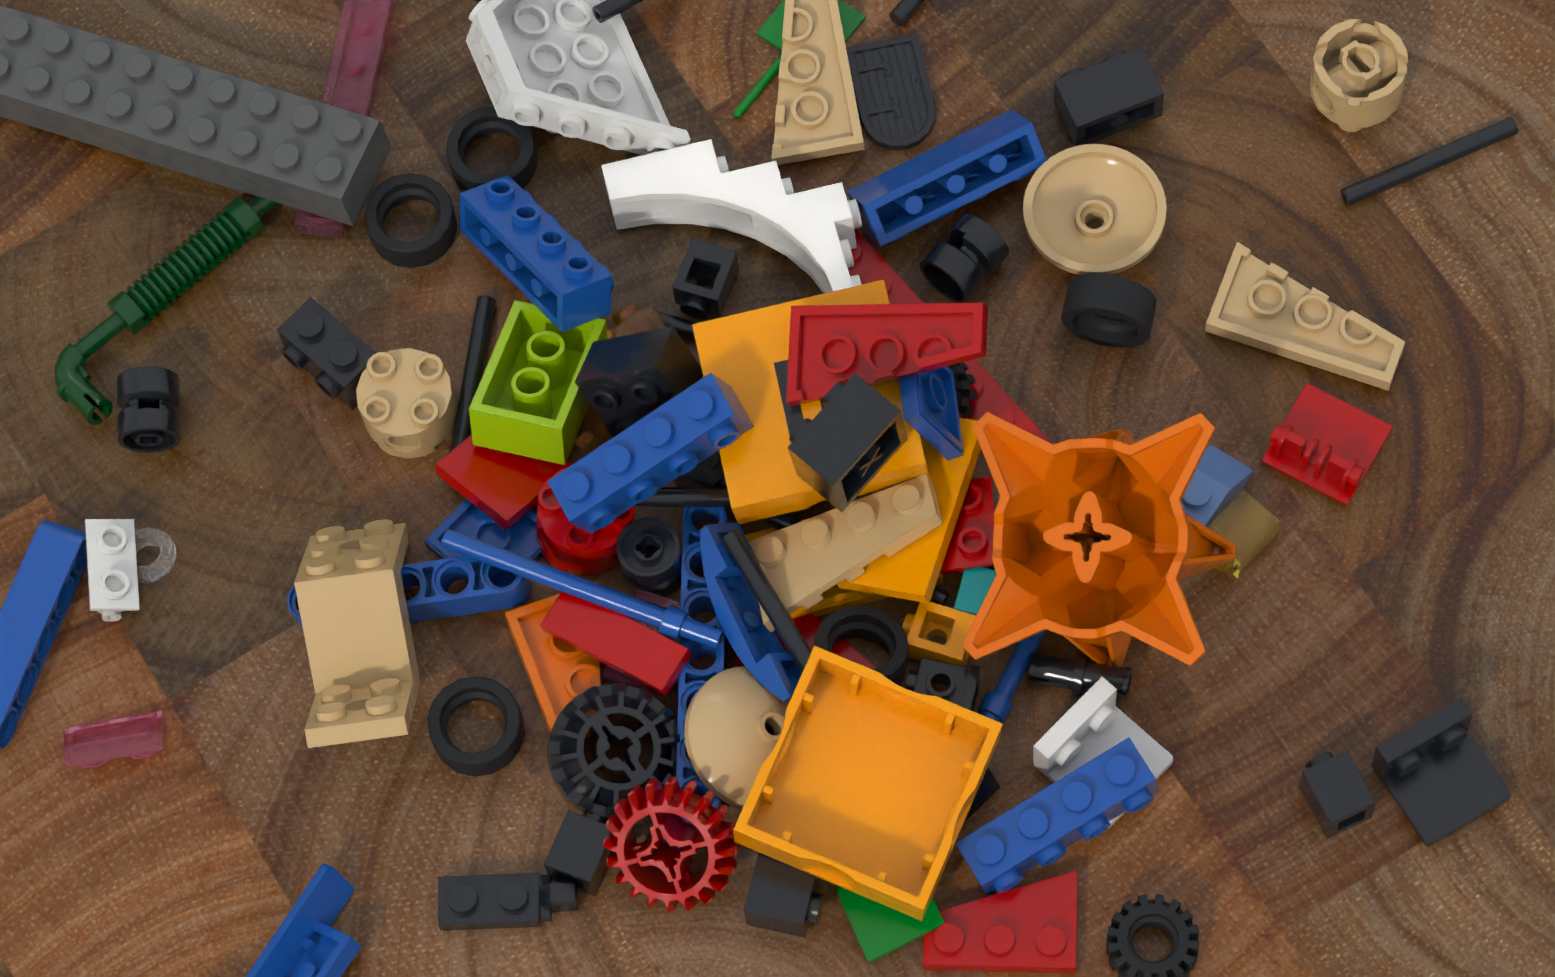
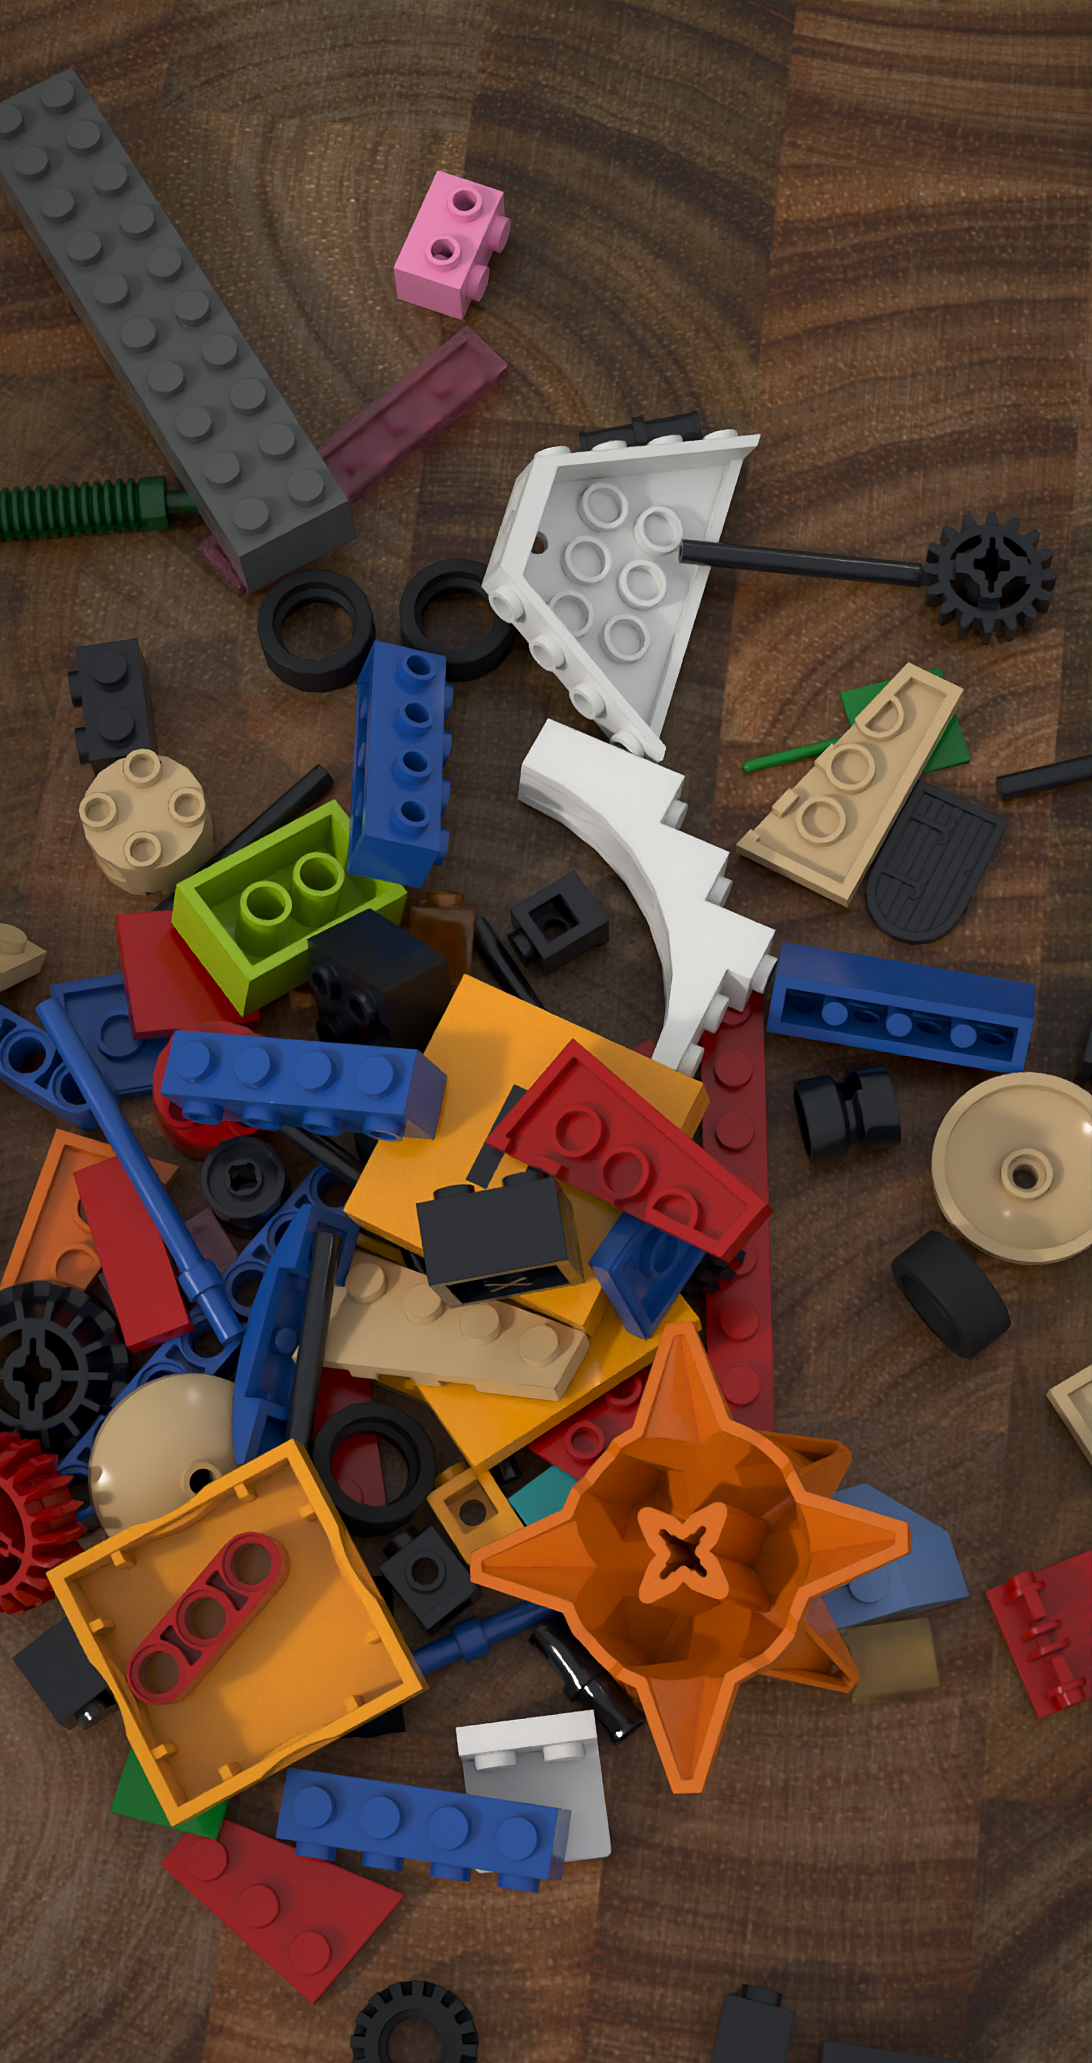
camera: 35 degrees right, 5 degrees up
(844, 763) = (176, 1630): none -> red beam

